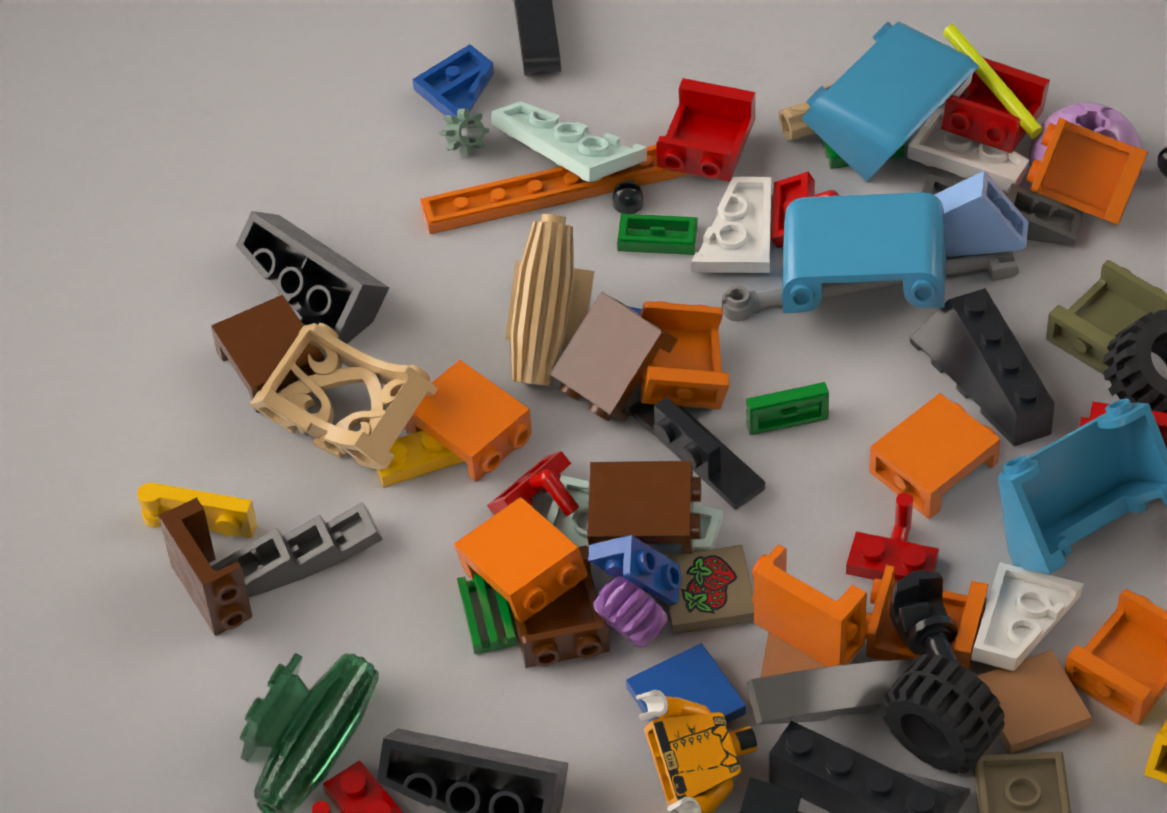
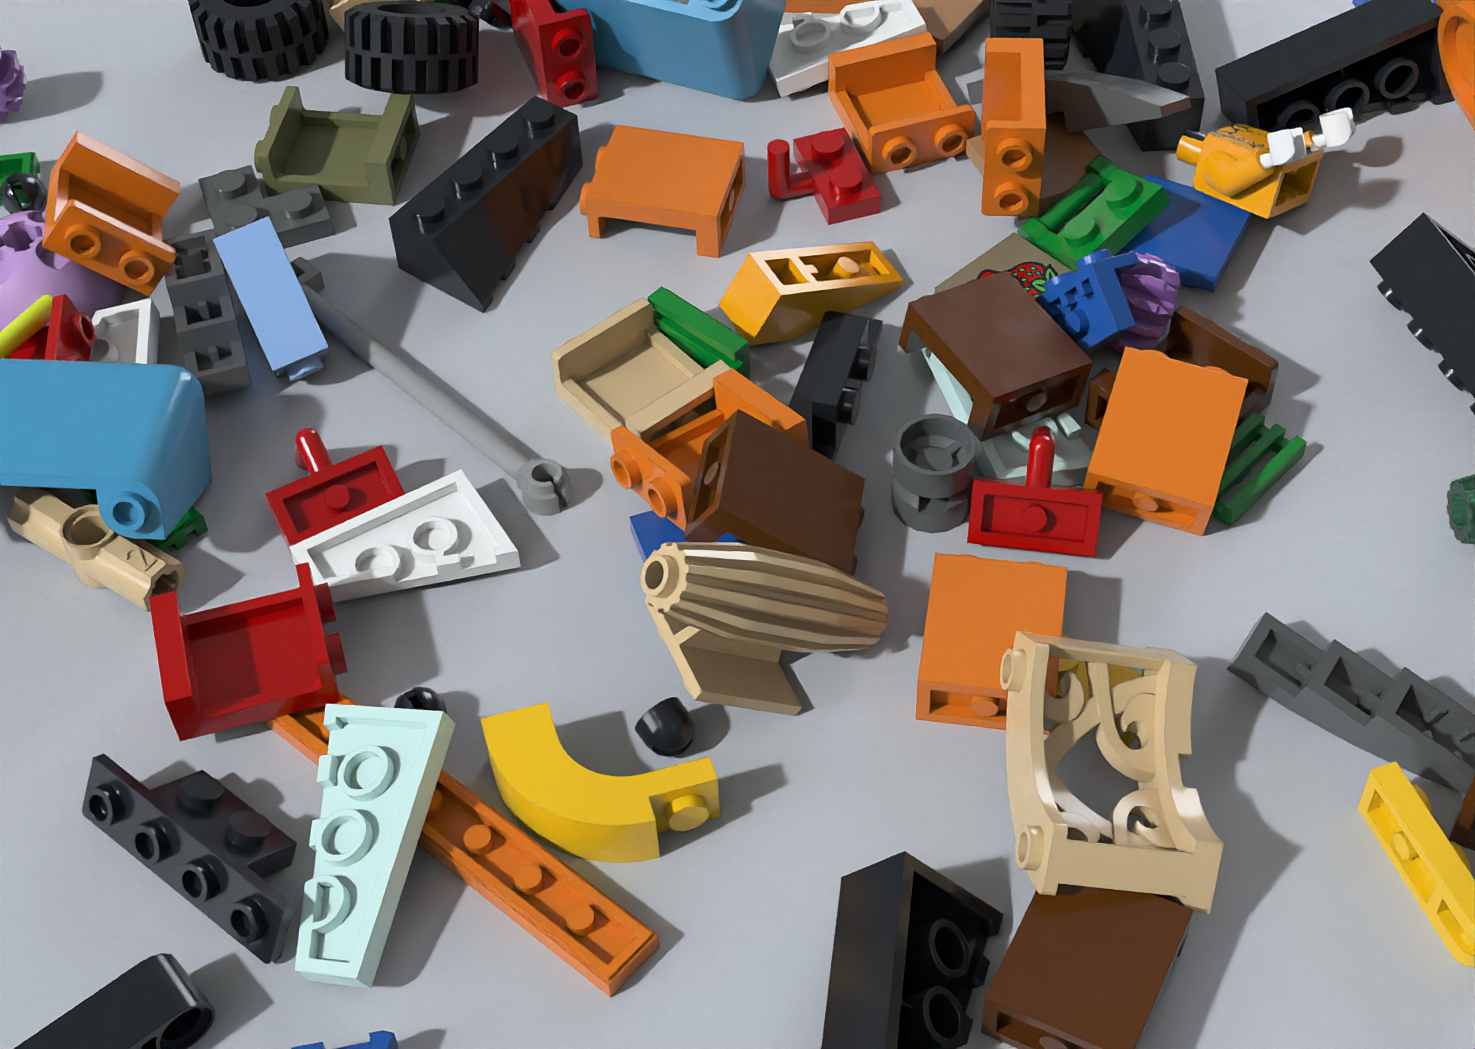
camera: 125 degrees left, 0 degrees up
(474, 135) = (425, 997): sand green gear -> none
(509, 223) = (585, 810): none -> yellow arch
(589, 439) = (933, 472): none -> dark grey wheel
(616, 97) = (201, 846): none -> black bracket
(658, 234) = (490, 680): green tile -> none
(711, 644) = (1106, 223): none -> green plate
(772, 366) = (632, 376): none -> tan panel
(785, 479) = (789, 290): none -> light orange slope
(864, 242) = (422, 342): dark azure windscreen -> none
(921, 615) = (930, 74): black piece -> none
(1072, 261) = (236, 201): none -> dark grey plate

